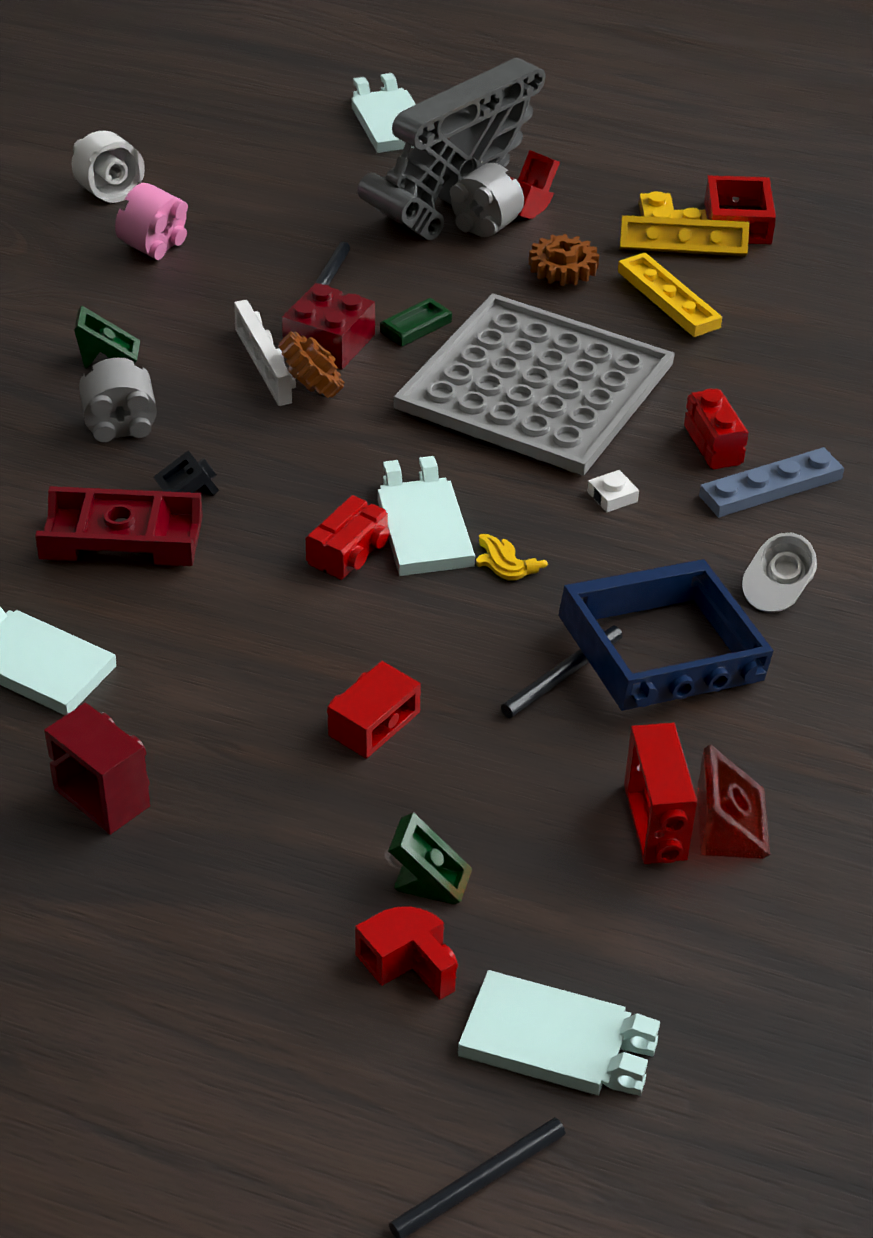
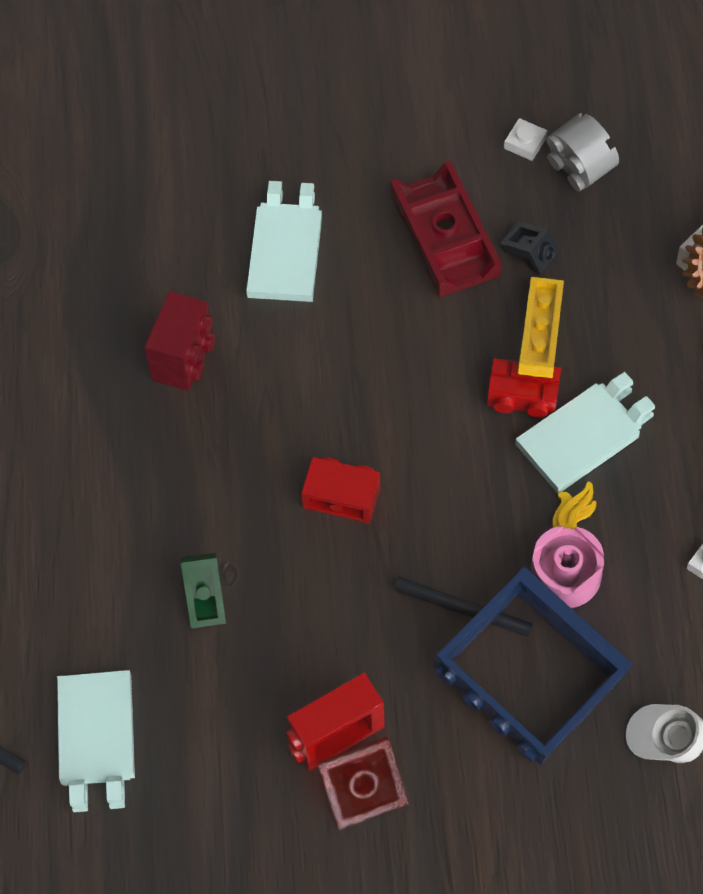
camera: 70 degrees right, 20 degrees up
(58, 445) = (525, 139): none -> white plate
(99, 335) = (660, 98): dark green slope -> none
(296, 492) = (541, 327): none -> yellow plate
(405, 941) = (128, 607): red brick -> none
(564, 559) = (567, 548): none -> bright pink brick

